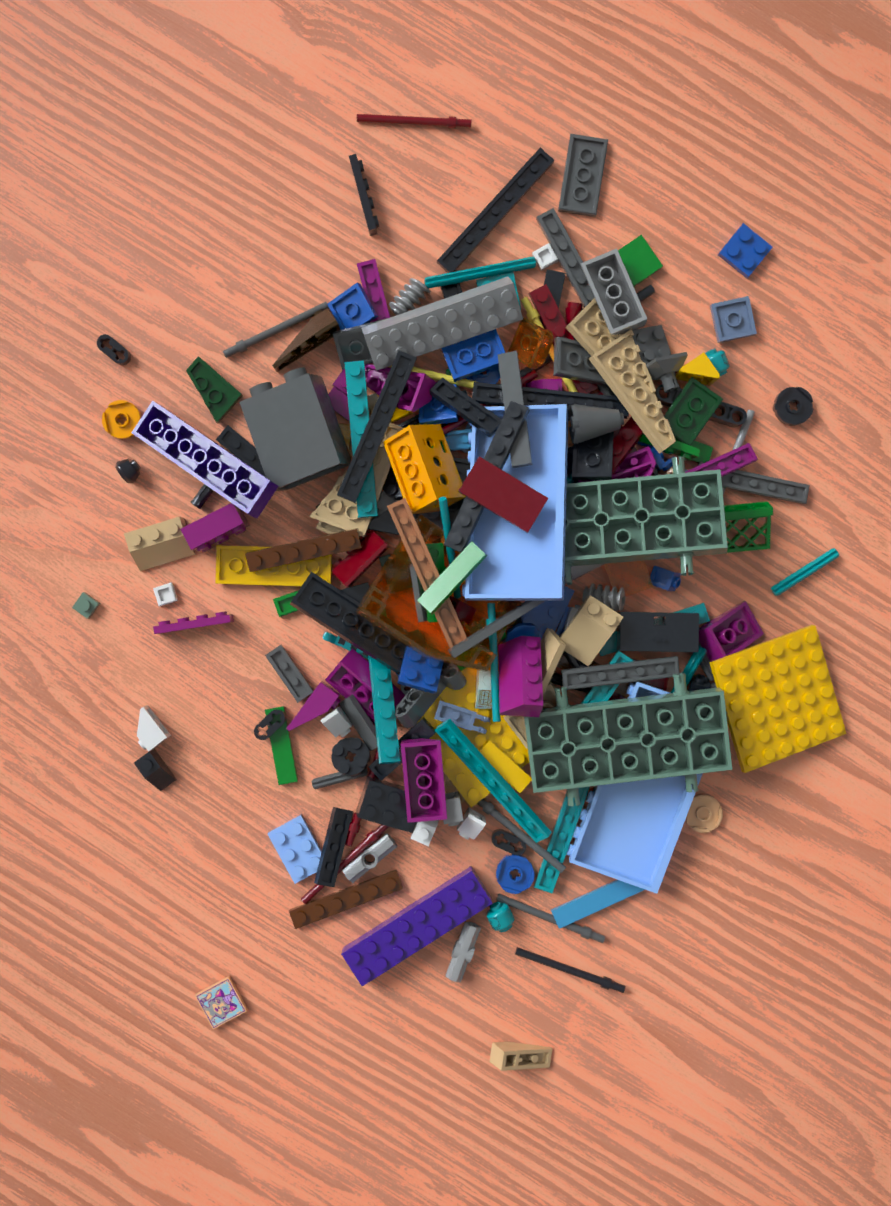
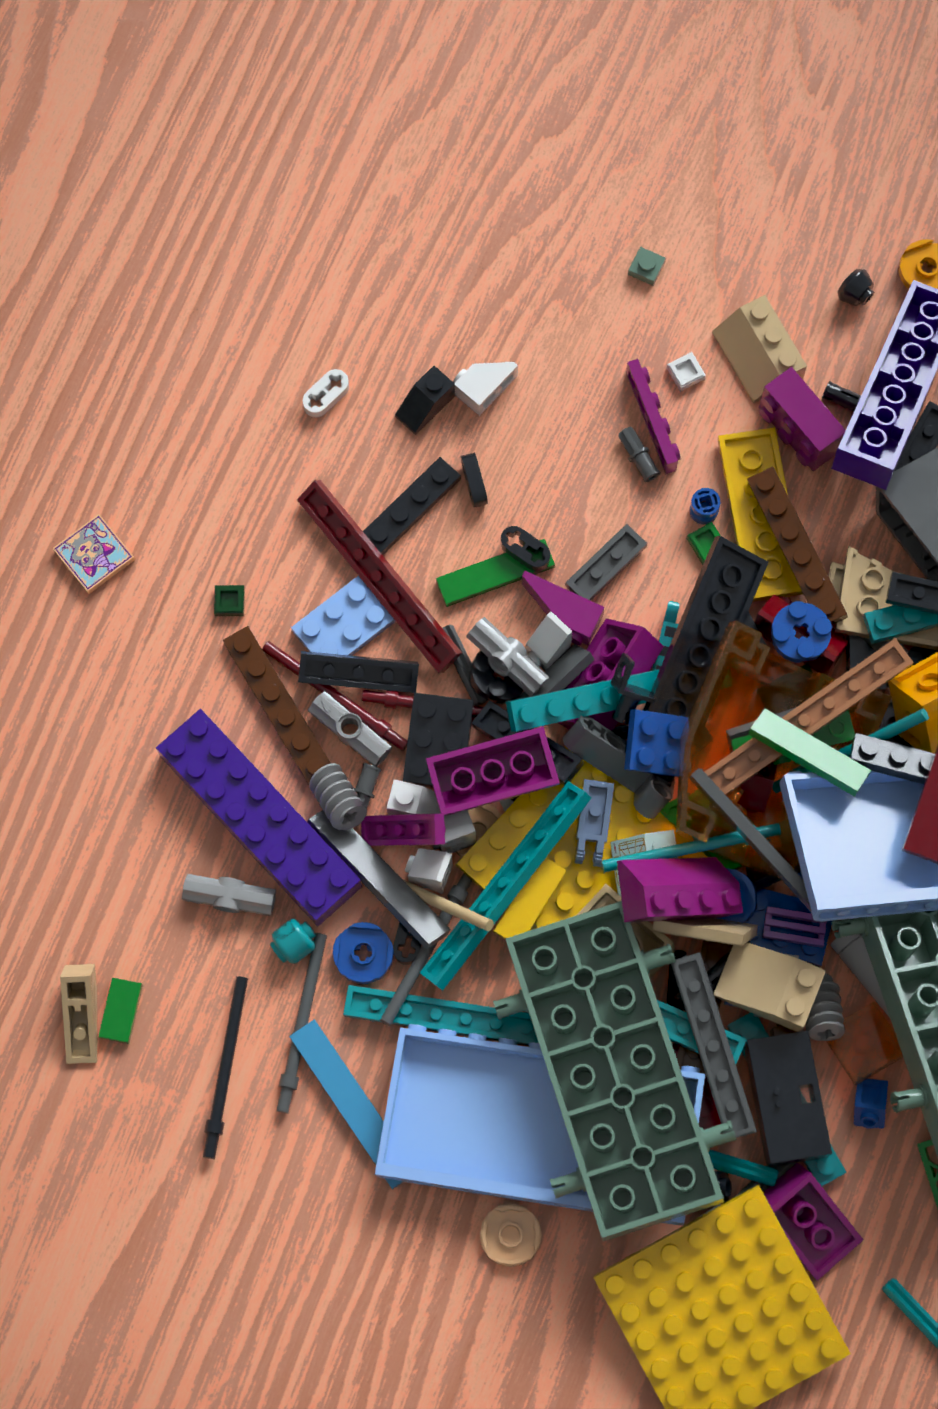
camera: 85 degrees right, 15 degrees down
(141, 831) = (321, 388): none -> white beam
(216, 748) = (474, 480): none -> black beam
(217, 637) = (639, 454): none -> dark grey axle
(226, 792) = (412, 505): none -> black plate
(264, 604) = (702, 512): none -> blue wheel
(268, 919) = (229, 600): none -> dark green tile
(271, 822) = (379, 576): none -> dark red plate
(342, 751) = (507, 656): none -> light grey piece
(365, 551) = (799, 615): none -> blue plate
(385, 681) = (630, 693): none -> black bracket
(412, 856) = (367, 783): none -> dark grey axle
(414, 875) = (337, 797): none -> light grey piece
(447, 840) = (404, 829): none -> magenta plate
(470, 857) = (382, 881): none -> dark grey tile
(497, 820) = (452, 908): none -> tan bar
(523, 1029) = (120, 1010): none -> green tile
(544, 618) = (771, 911): none -> medium lavender tile

